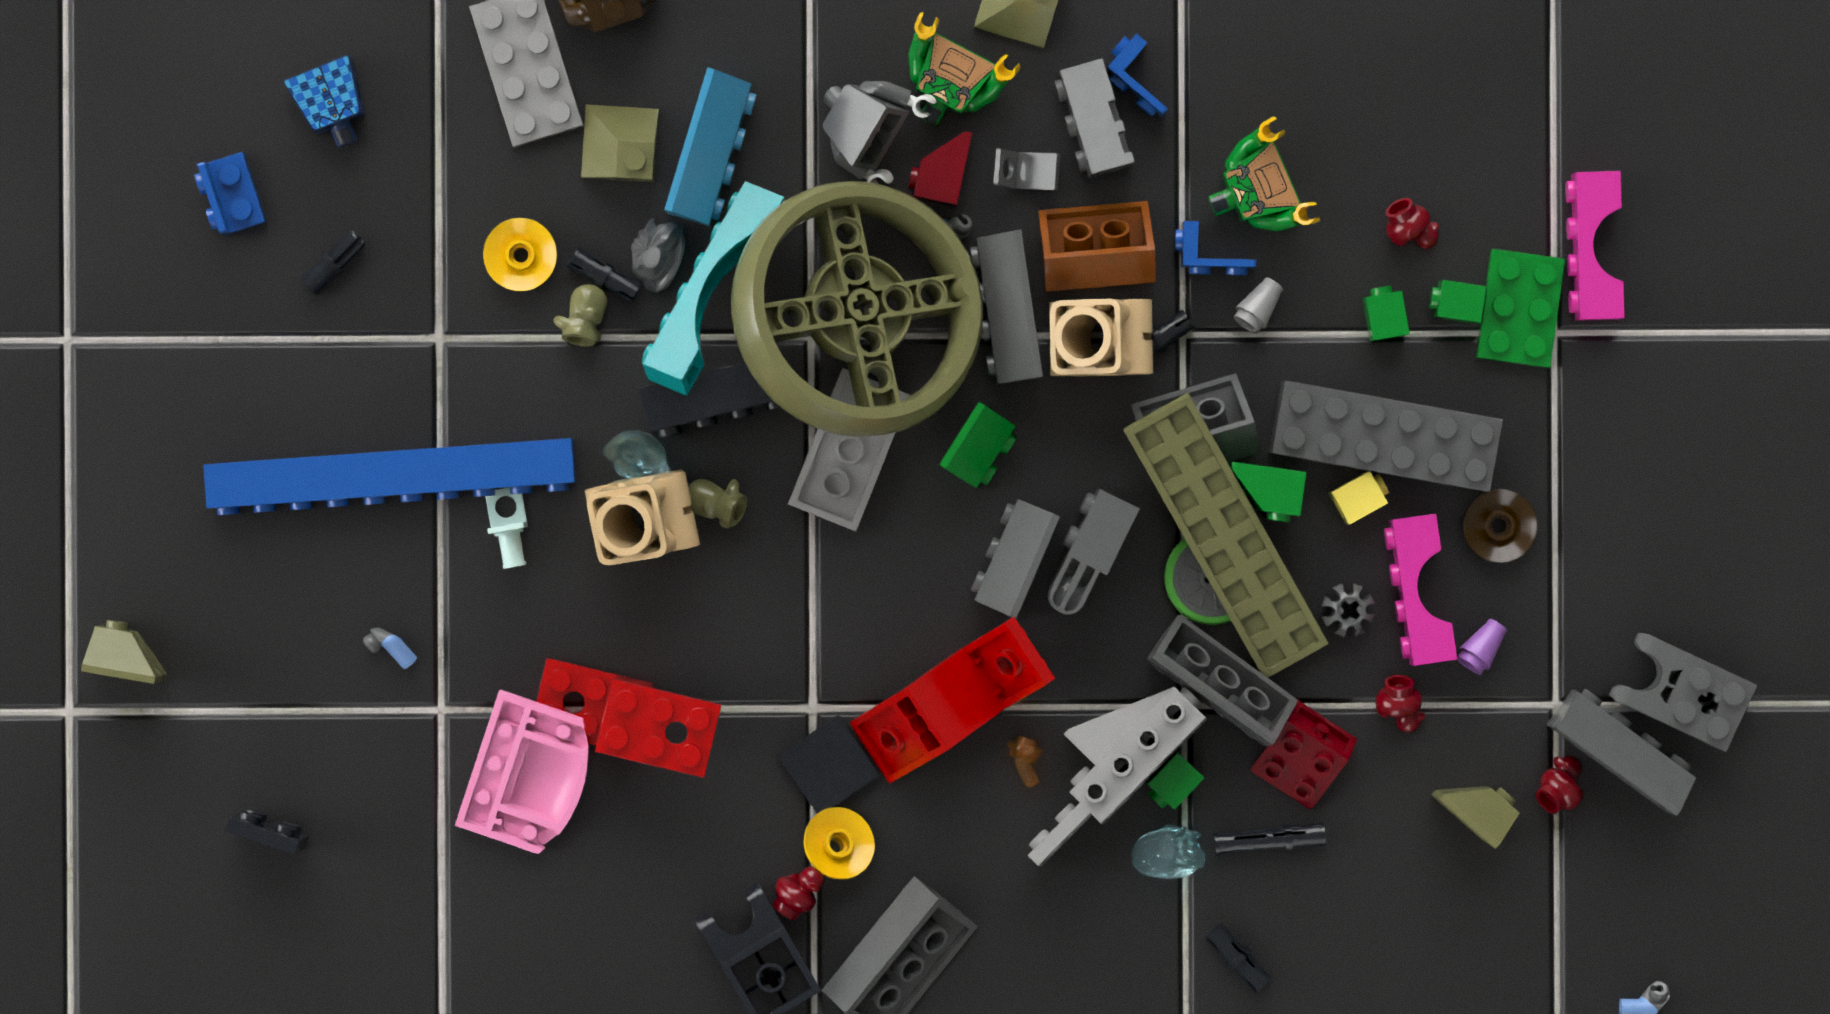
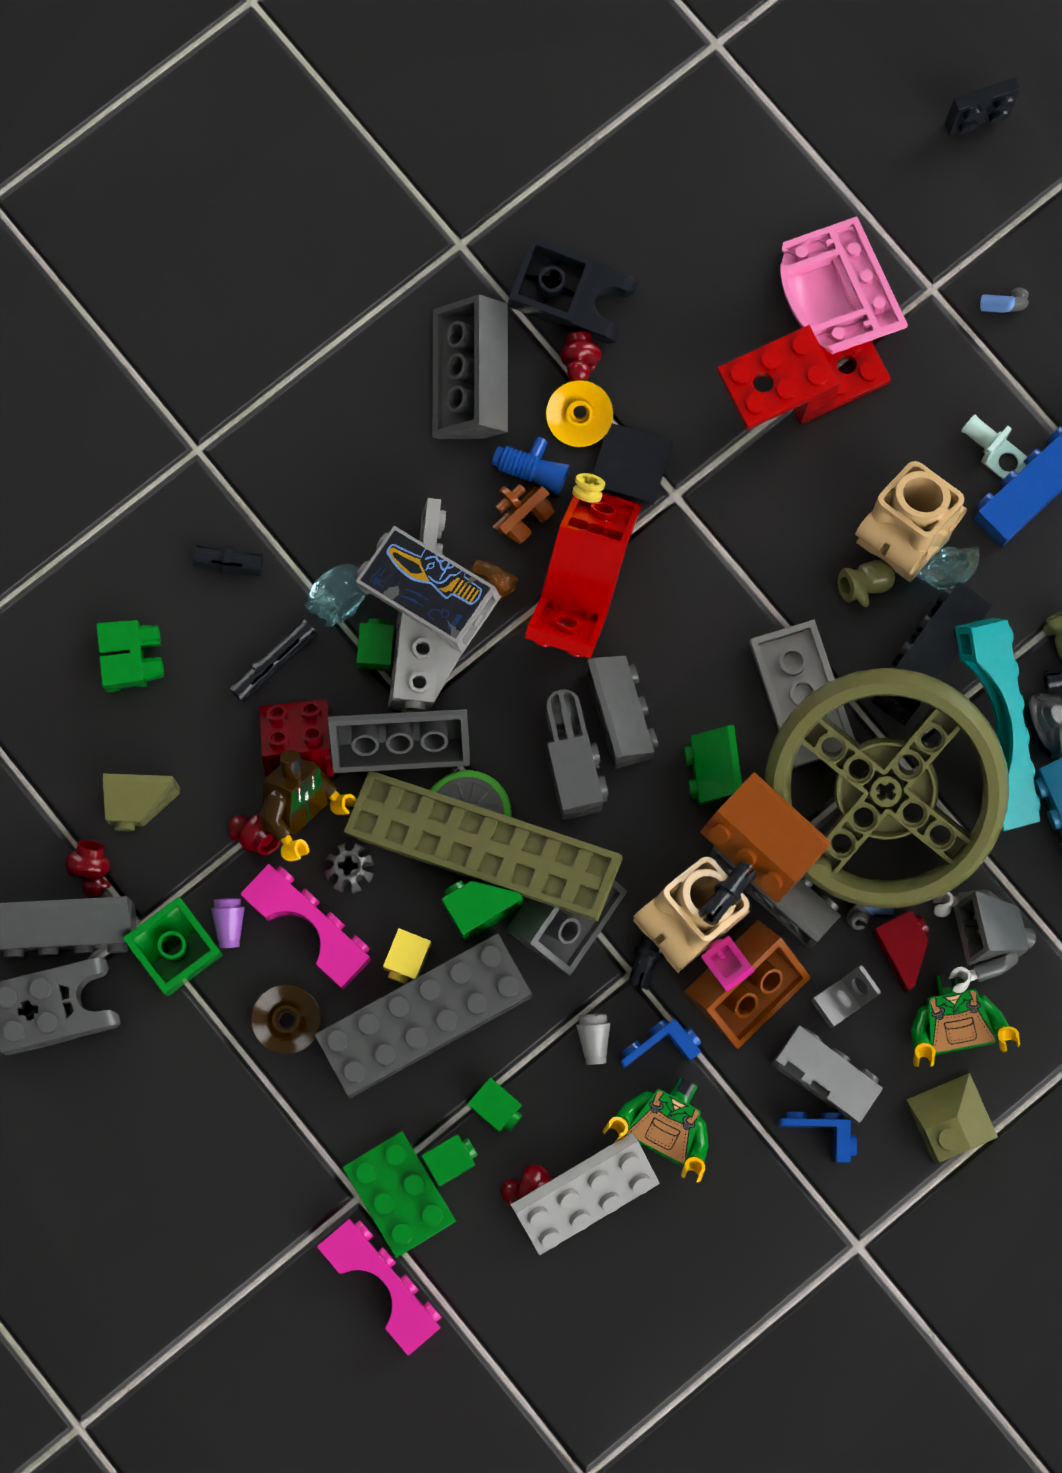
camera: 140 degrees right, 10 degrees down
(885, 771) = (588, 487): none -> light yellow bush
(918, 830) = (531, 467): none -> blue piece
(957, 802) = (511, 522): none -> dark orange hips
(994, 347) = (766, 834): none -> dark orange slope
(1067, 325) = (727, 893): none -> black pin
(1102, 787) = (428, 588): none -> panel
(1107, 273) = (727, 962): none -> dark pink bracket
(1352, 702) = (294, 797): none -> dark brown torso
(1372, 183) = (585, 1193): none -> light grey plate
(1392, 926) = (123, 654): none -> green hips
(1547, 660) = (173, 946): none -> green slope

